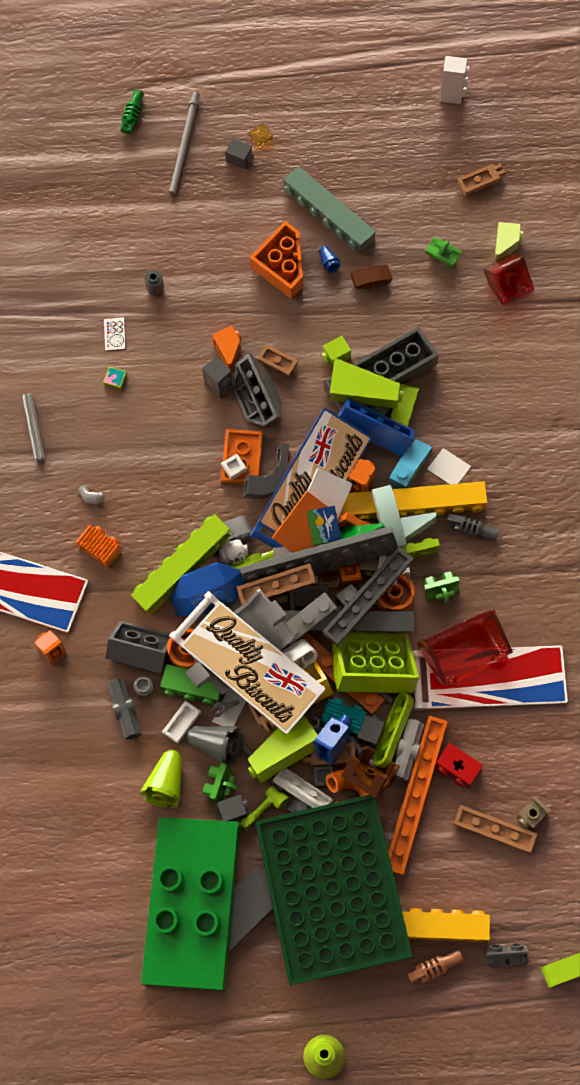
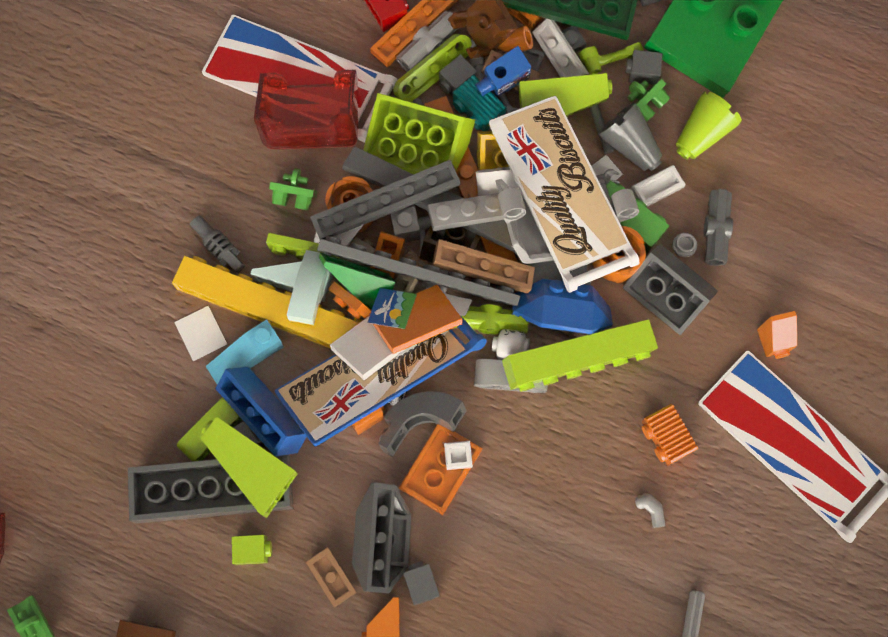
camera: 160 degrees left, 5 degrees up
(362, 476) = (309, 354): orange brick -> none

